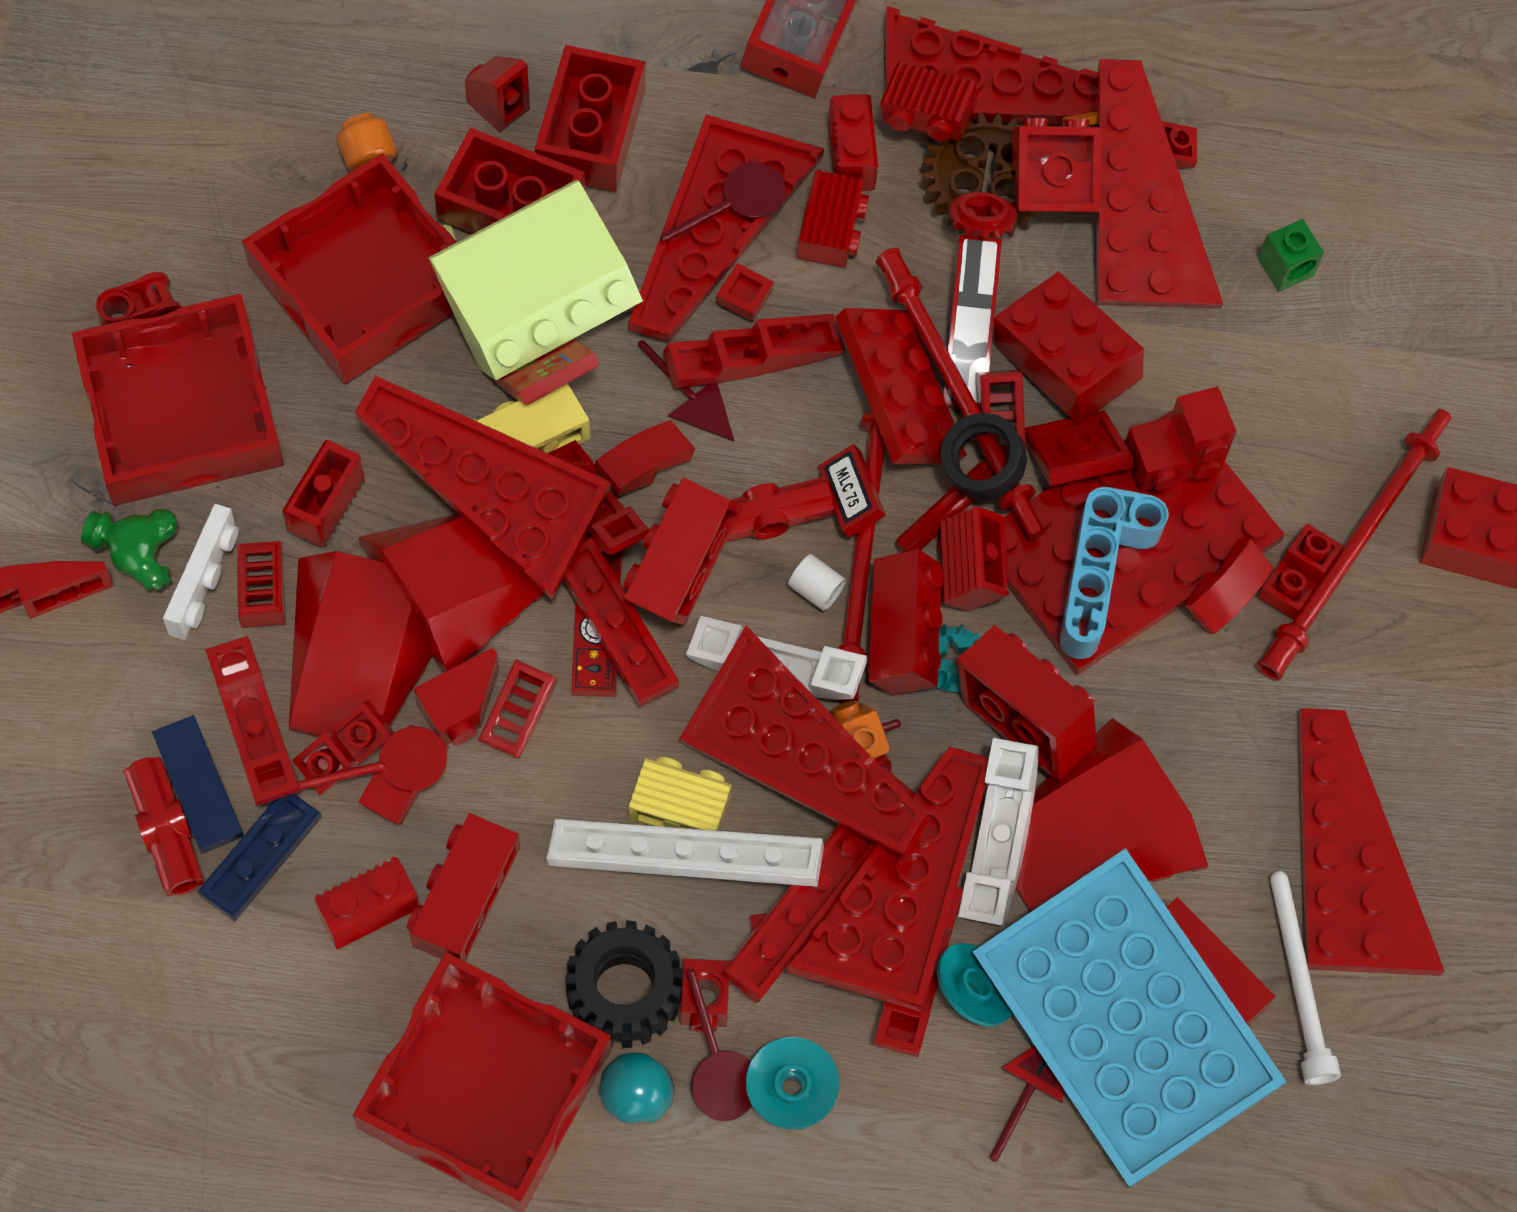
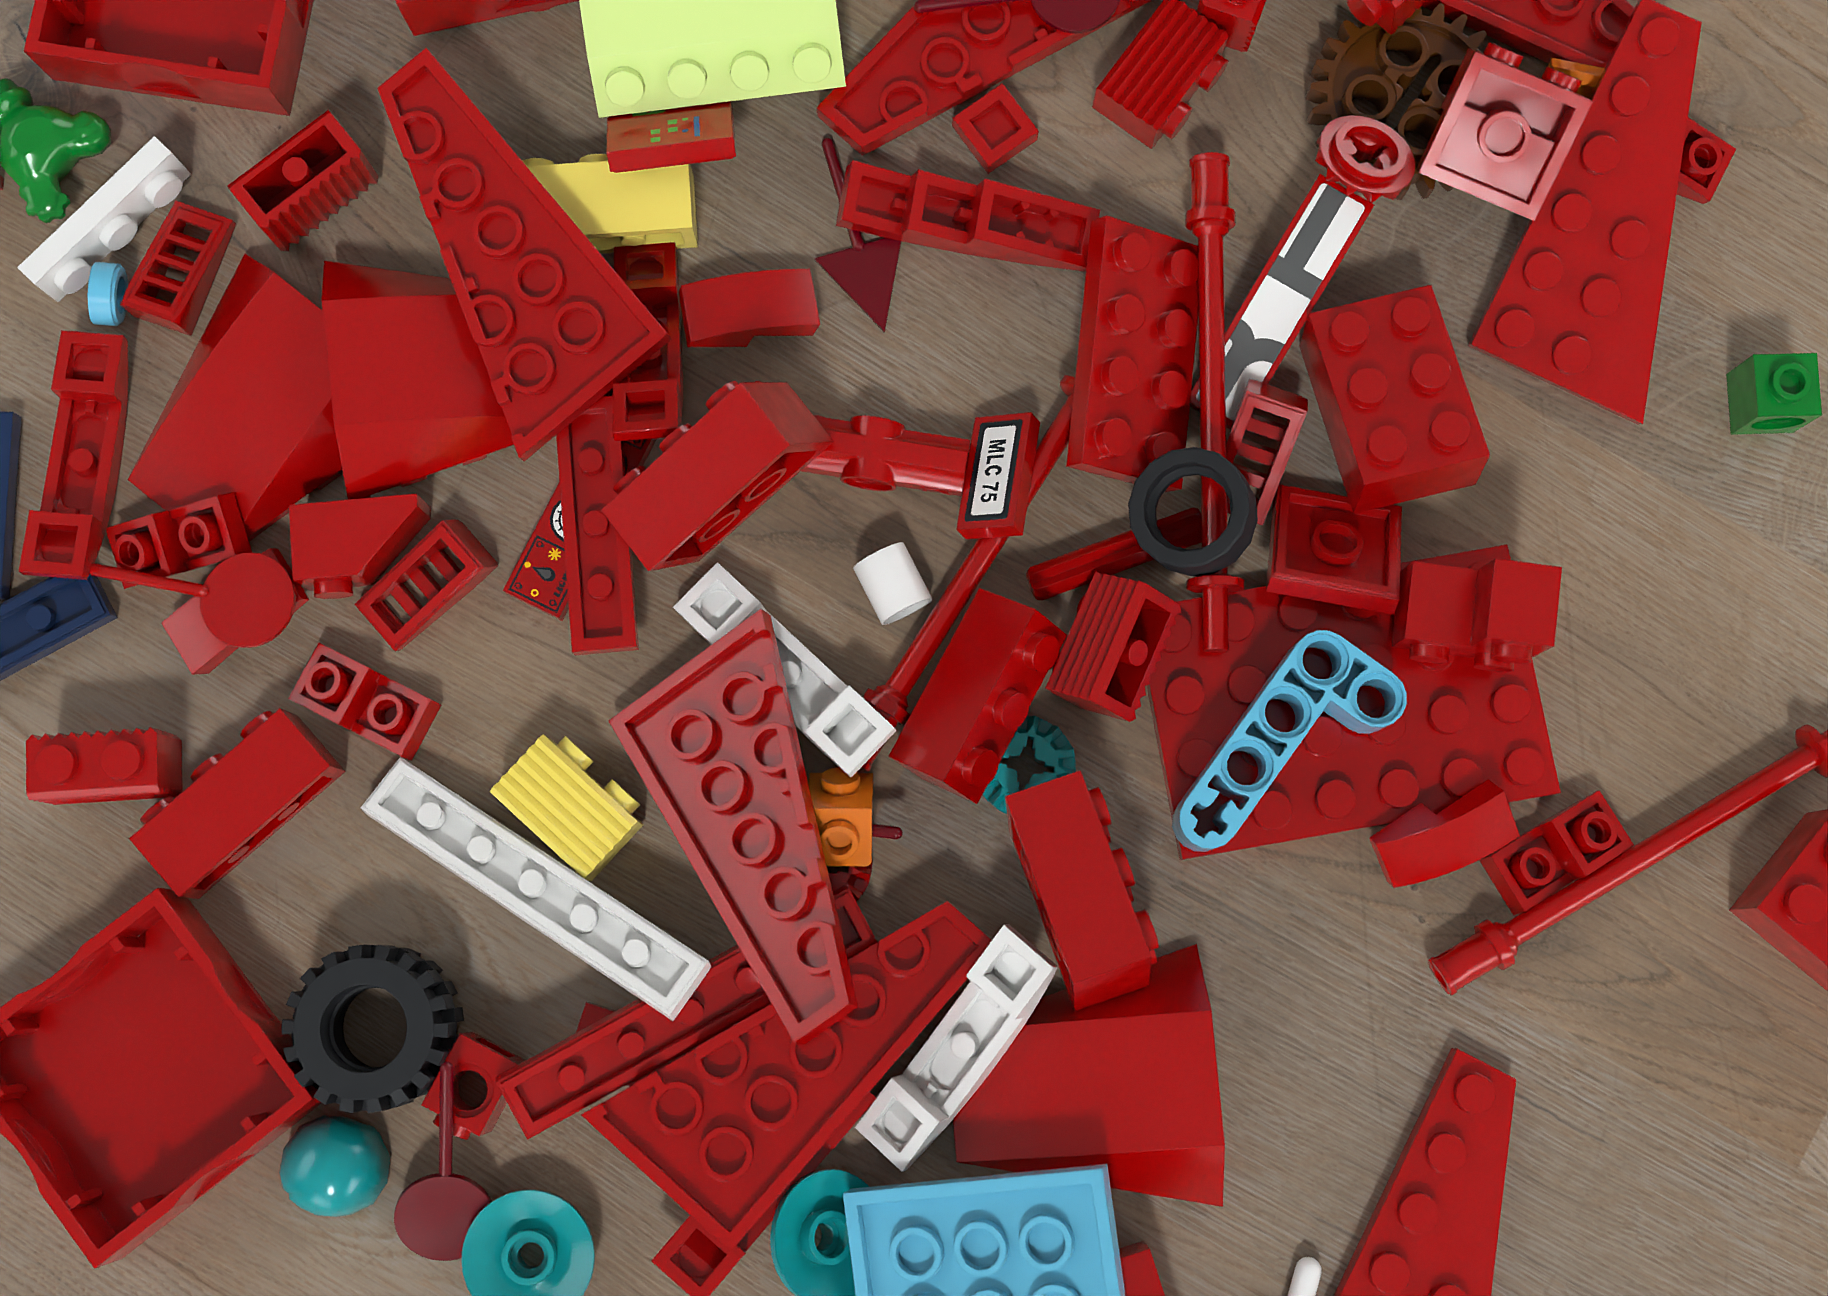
camera: 30 degrees right, 15 degrees up
(223, 616) = (105, 293): none -> medium azure tile
(513, 797) = (365, 701): none -> red slope

